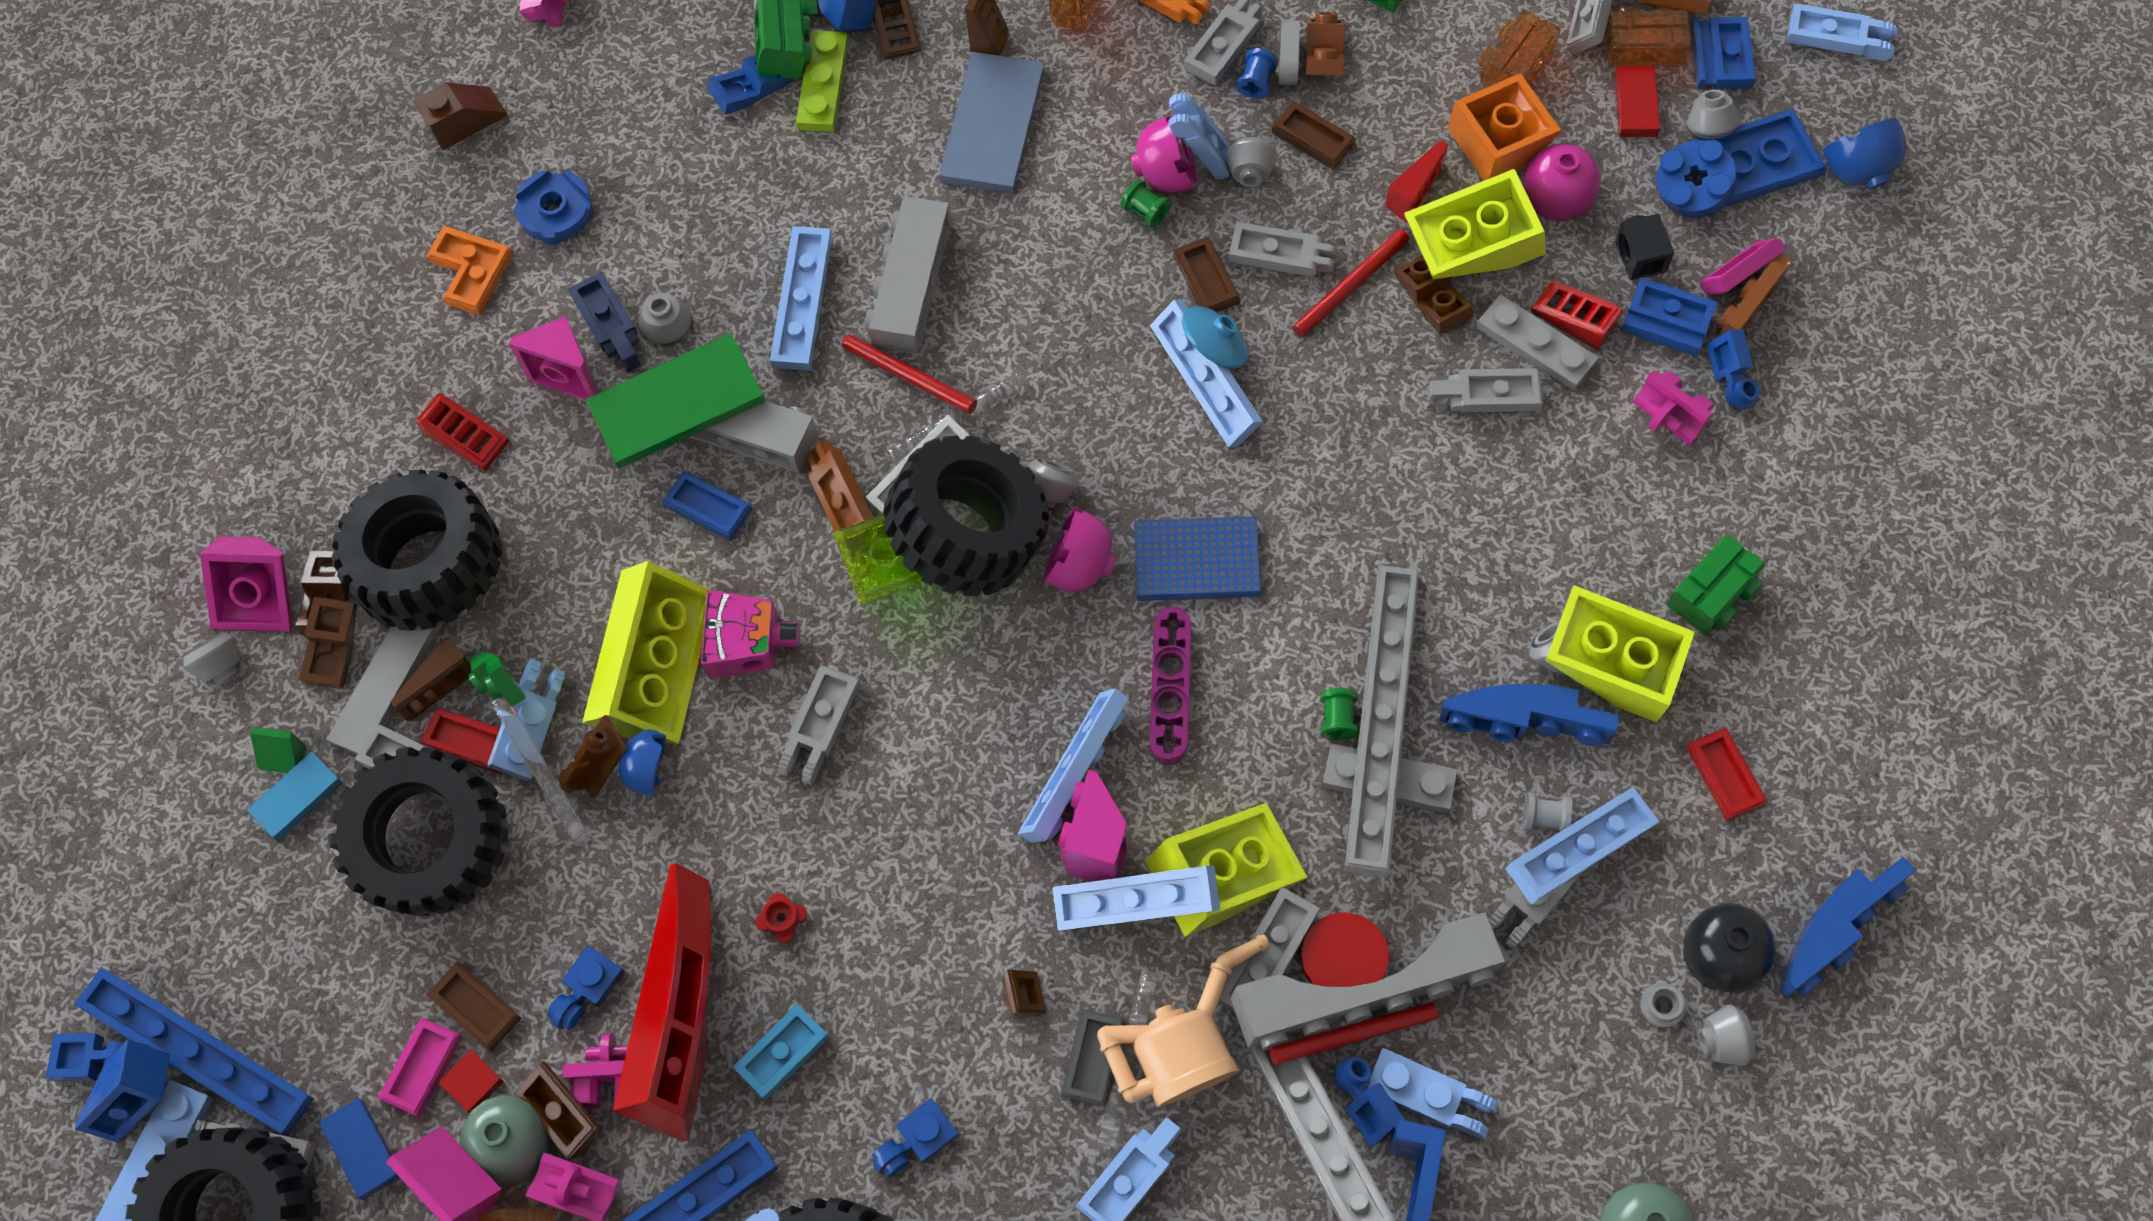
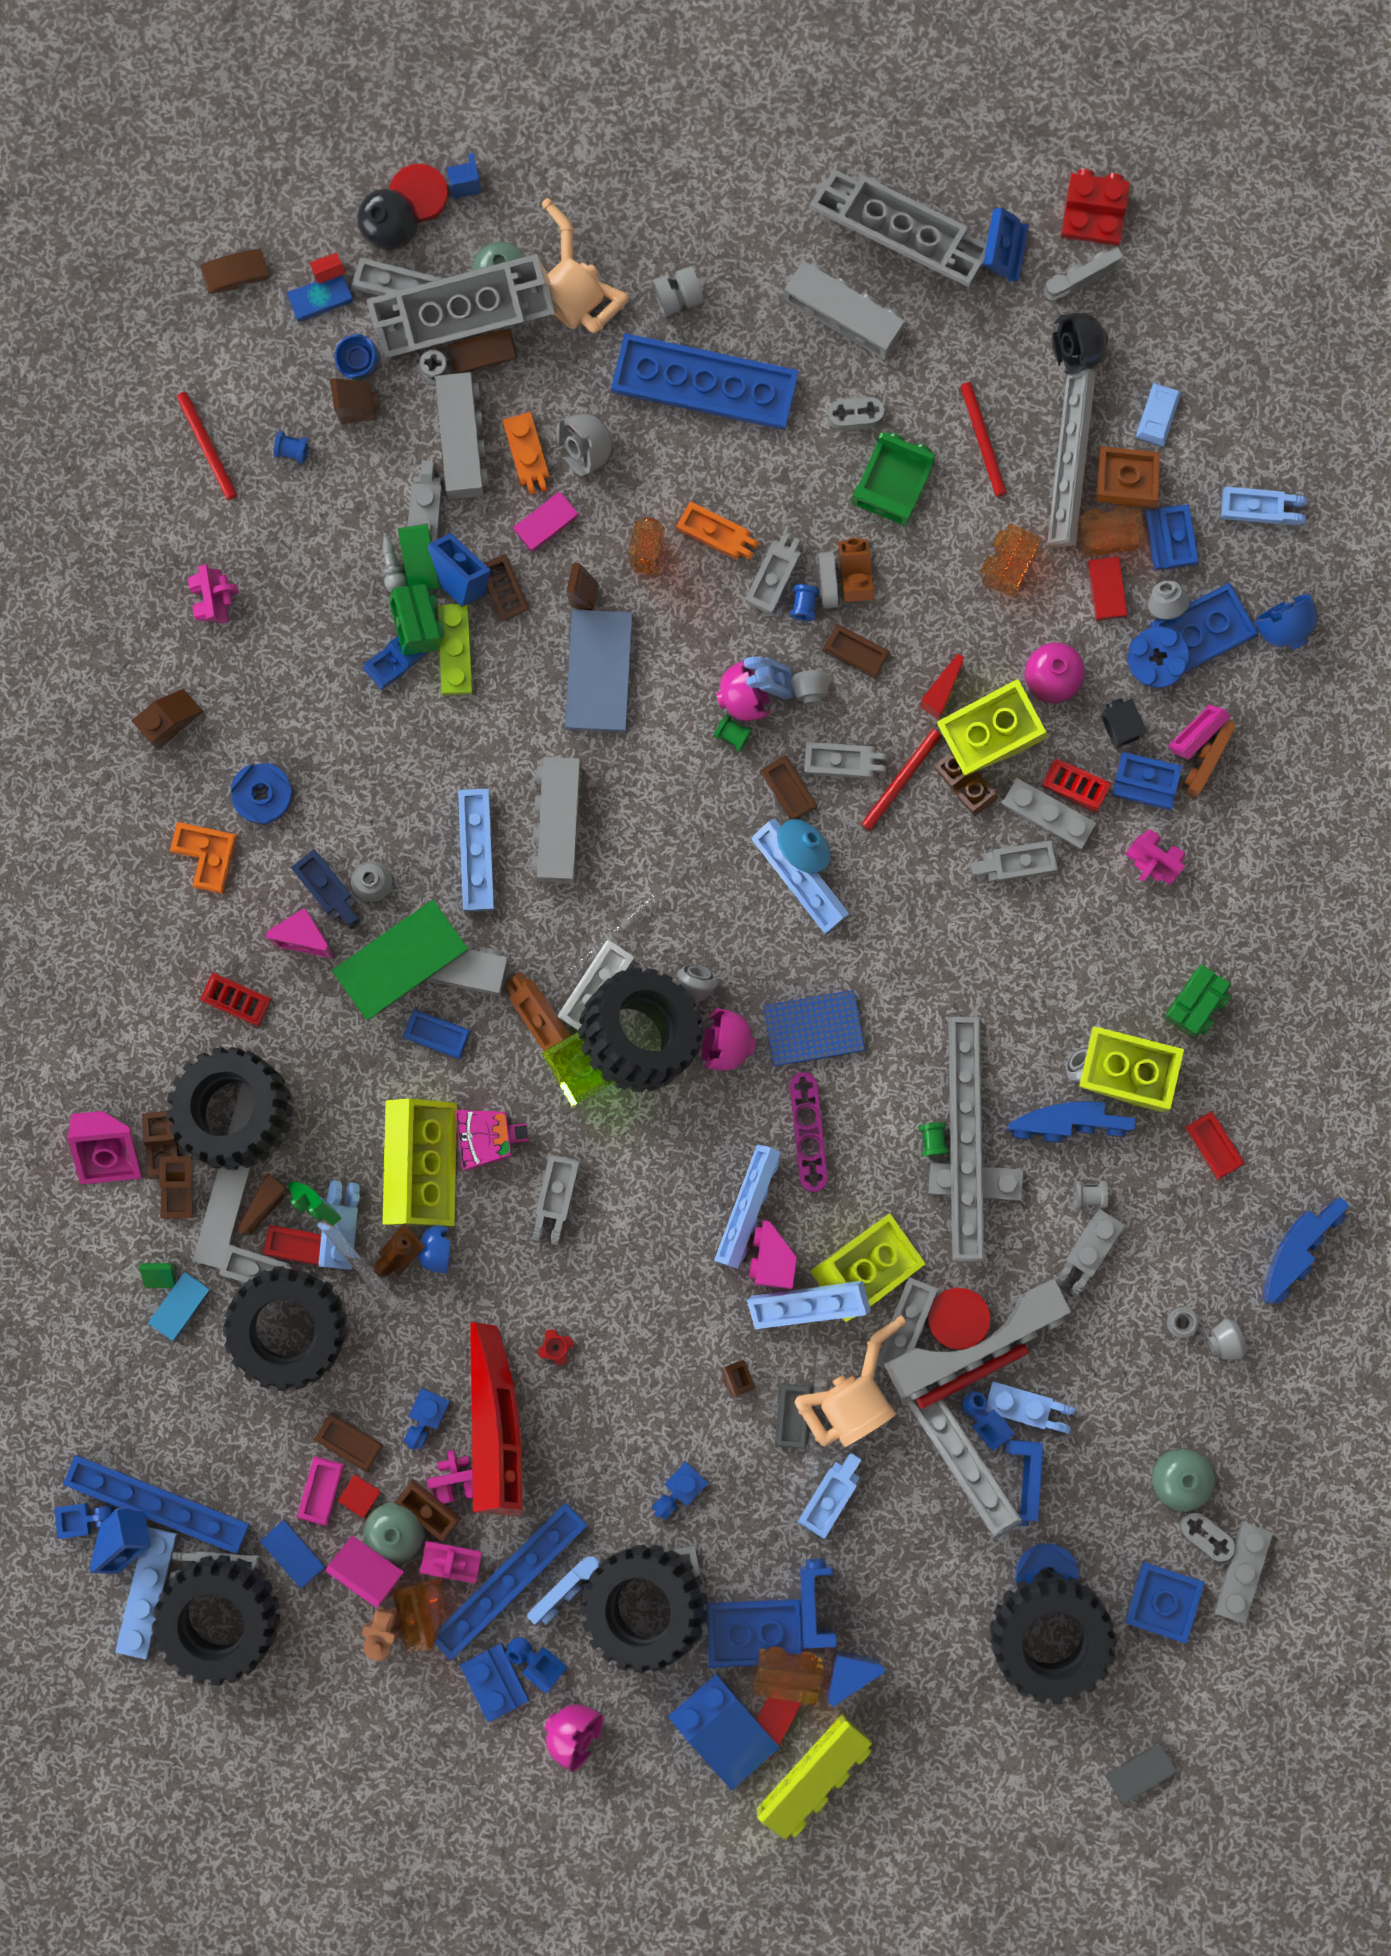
camera: 10 degrees left, 15 degrees up
(213, 659) = (92, 1210): light grey cone -> none
(781, 1052) = (574, 1444): dark azure plate -> none
(909, 374) = (572, 905): red bar -> none
(1502, 126) = (1005, 634): orange slope -> none
(1581, 845) = (1117, 1219): light blue plate -> none
(1729, 360) = (1196, 815): blue plate -> none
(1729, 948) = (1224, 1275): black cylinder -> none

